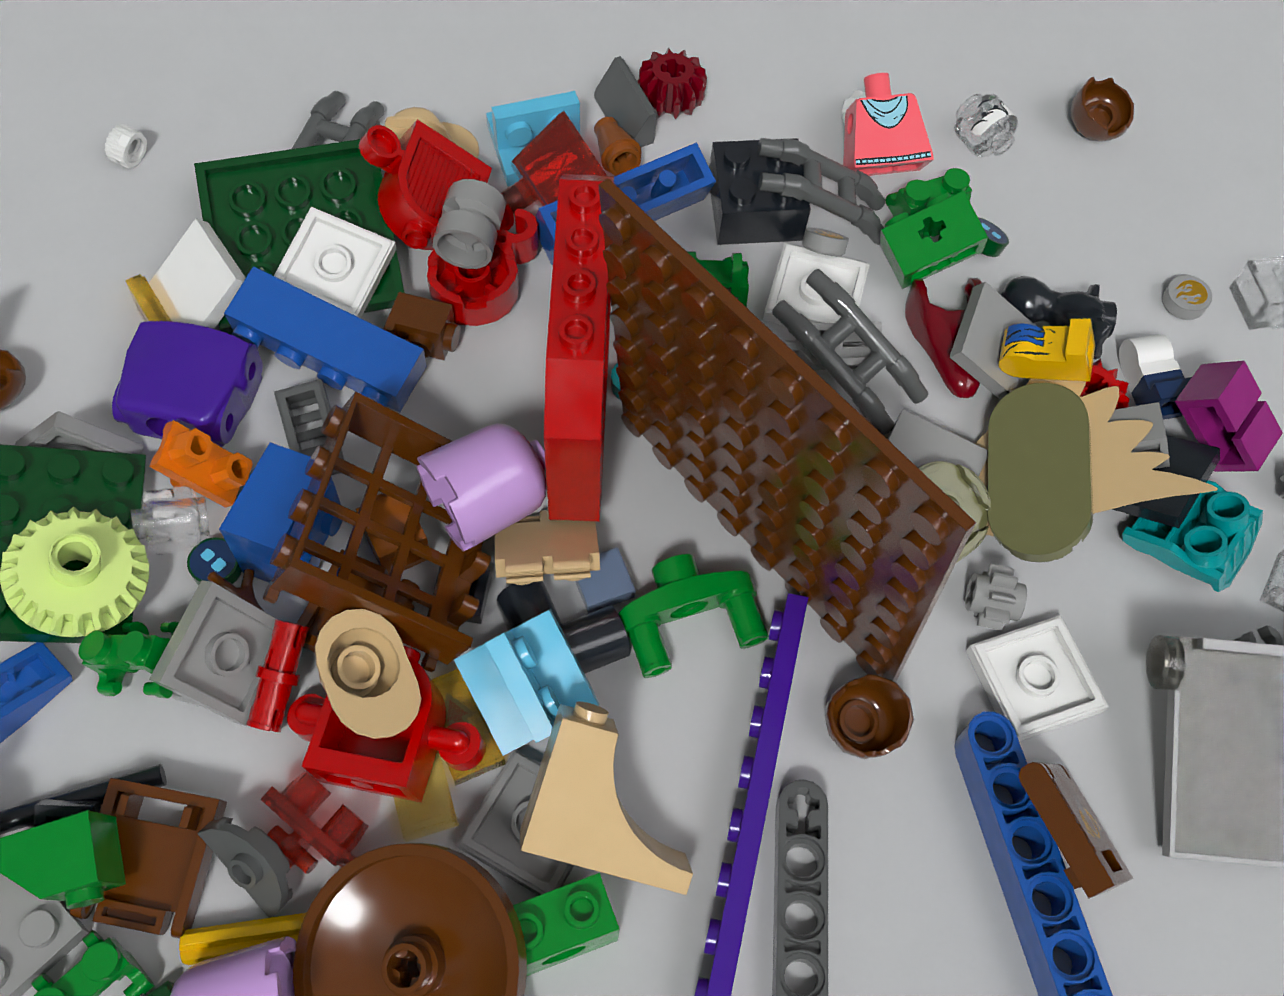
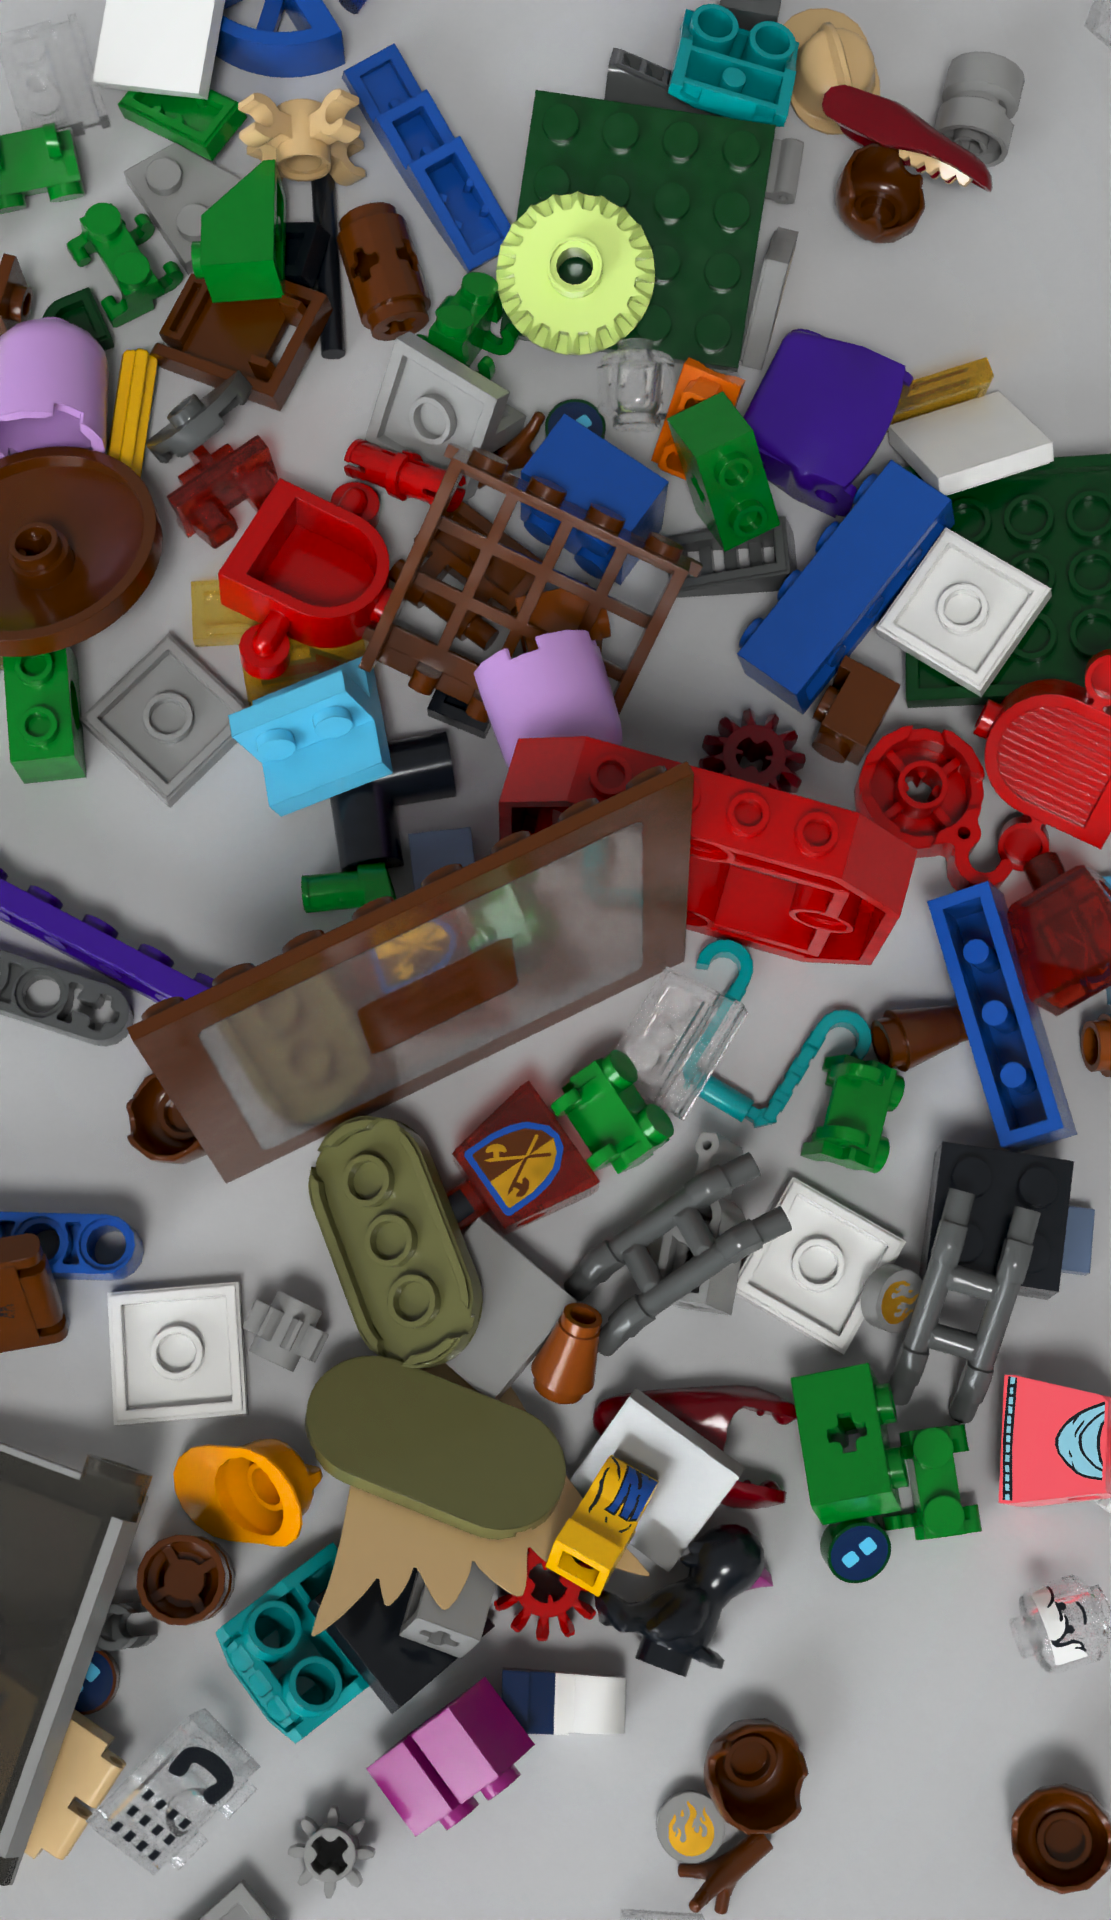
camera: 105 degrees right, 15 degrees up
(53, 763) = (387, 271): none -> reddish brown piece
(244, 417) = (724, 471): none -> green brick
(367, 674) = (336, 540): tan piece -> none
(469, 224) = (971, 780): light grey wheel -> none
(475, 384) = (754, 743): none -> dark red gear
(546, 547) = (466, 802): tan plate -> none
(579, 815) = (130, 760): tan arch -> none
(939, 407) = (568, 1357): none -> dark orange cone
(1114, 587) = (246, 1490): none -> light orange piece
(1147, 262) = (755, 1775): none -> reddish brown hair
(1200, 609) = (185, 1579): none -> reddish brown wheel
(1207, 273) = (724, 1872): none -> reddish brown bar

